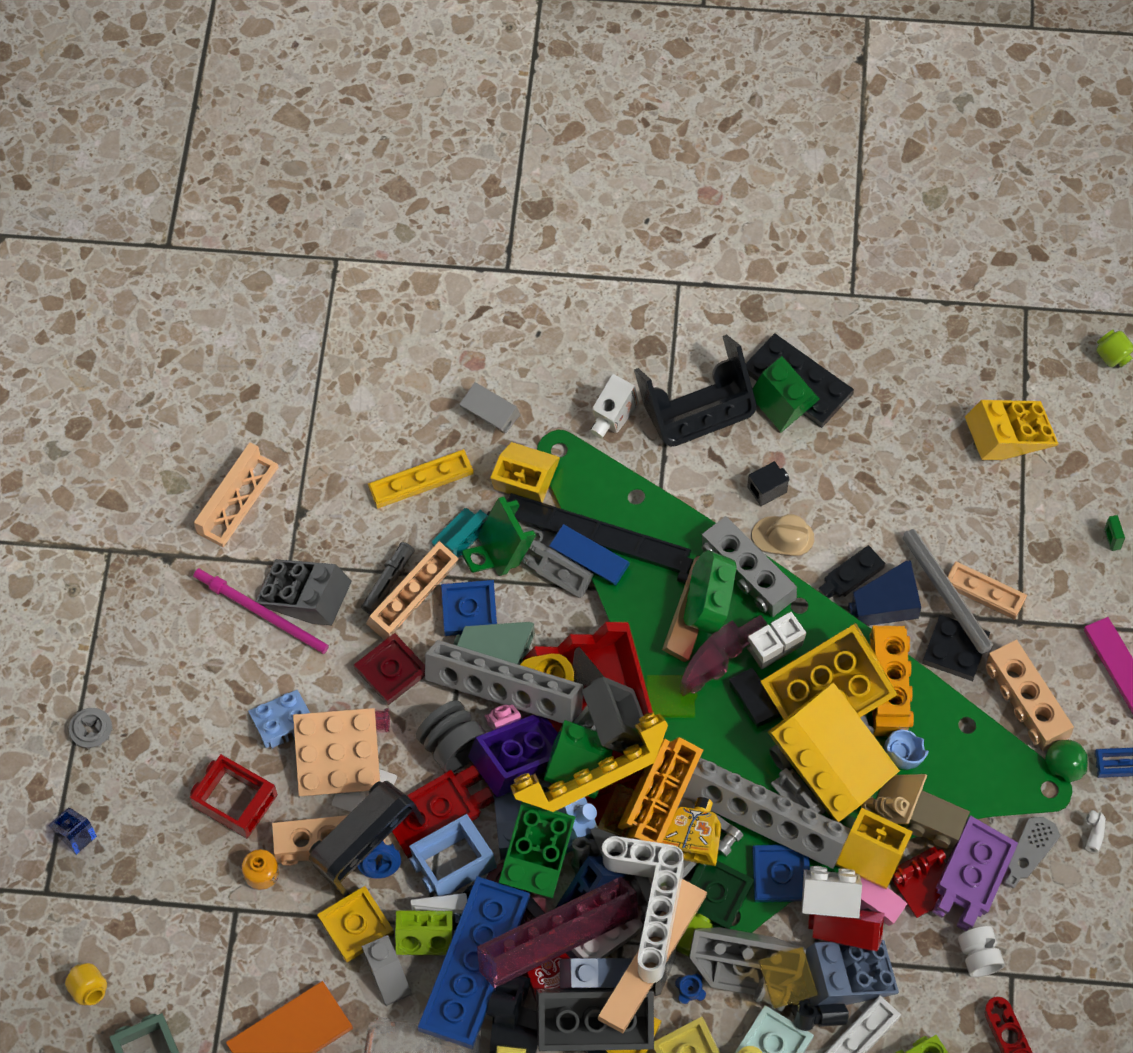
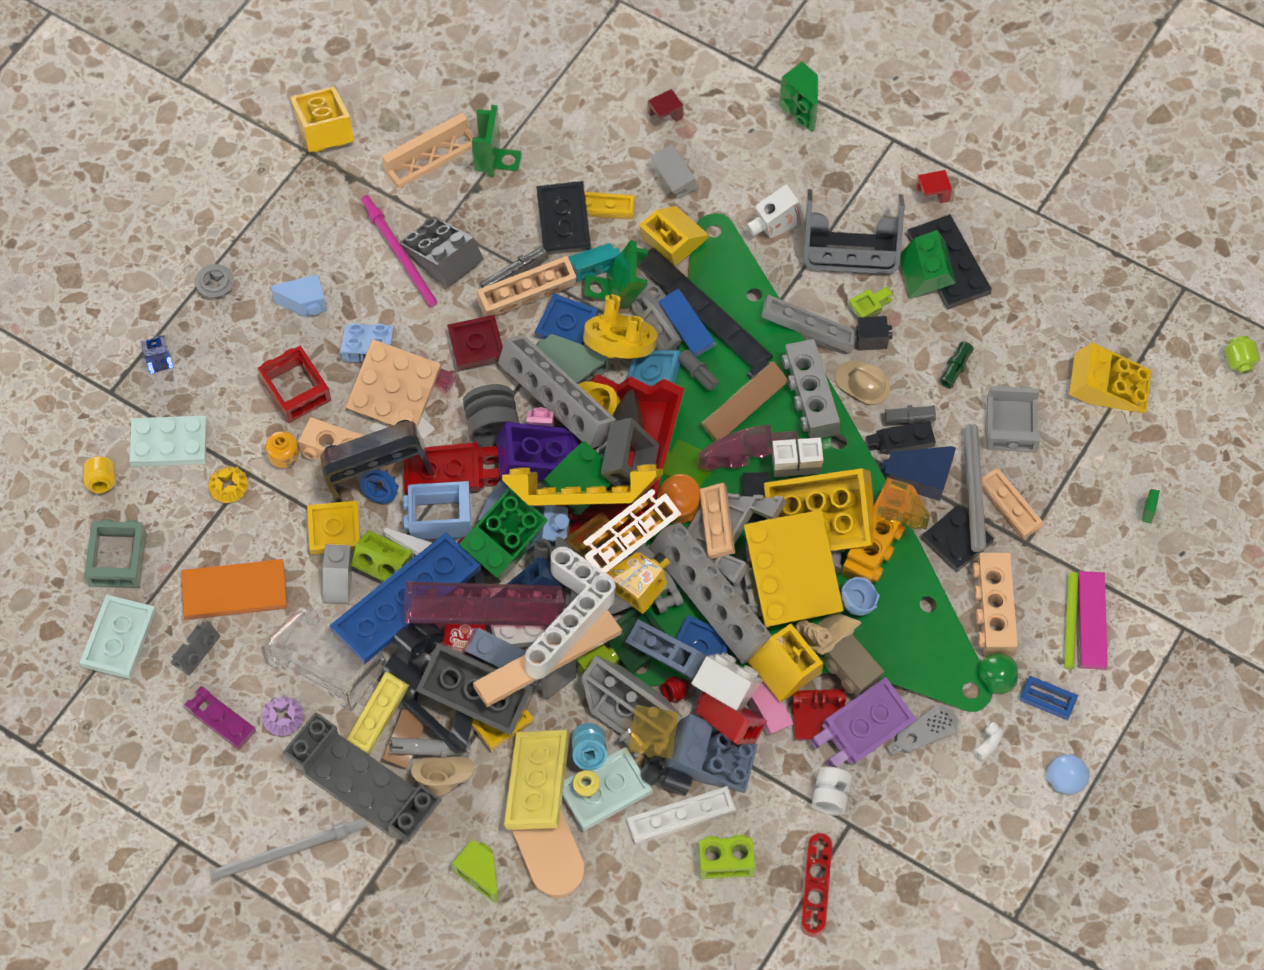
camera: 25 degrees right, 0 degrees up
(108, 510) = (322, 119): none -> yellow slope
(136, 915) = (168, 441): none -> light aqua plate
(190, 702) = (301, 296): none -> light blue slope
(231, 938) = (230, 493): none -> yellow gear
(294, 464) = (486, 150): none -> green piece
(407, 503) = (563, 217): none -> black tile
(446, 345) = (666, 104): none -> dark red panel
(531, 596) = (619, 334): none -> yellow piece
(573, 278) = (800, 95): none -> green slope
(580, 613) = (656, 366): none -> dark azure tile
(628, 597) = (698, 370): none -> dark grey axle
(688, 726) = (684, 494): none -> orange hair
(694, 981) = (570, 699): blue plate -> none
(705, 502) = (809, 323): none -> light grey tile
(710, 592) = (763, 393): green brick -> none
(732, 1022) = (589, 746): none -> medium azure wheel
(735, 739) = (717, 521): none -> light nougat tile
(738, 740) = (740, 512): none -> light grey wing
(746, 310) = (935, 183): none -> red panel
(748, 457) = (870, 304): none -> lime plate
(757, 890) = (666, 649): none -> sand blue slope
(778, 924) = (675, 689): none -> red plate
(847, 547) = (910, 414): none -> dark grey pin
(861, 478) = (956, 364): none -> dark green pin
(904, 641) = (903, 504): none -> clear yellow slope
(943, 508) = (1012, 419): none -> light grey panel
(1102, 677) = (1071, 619): none -> lime bar

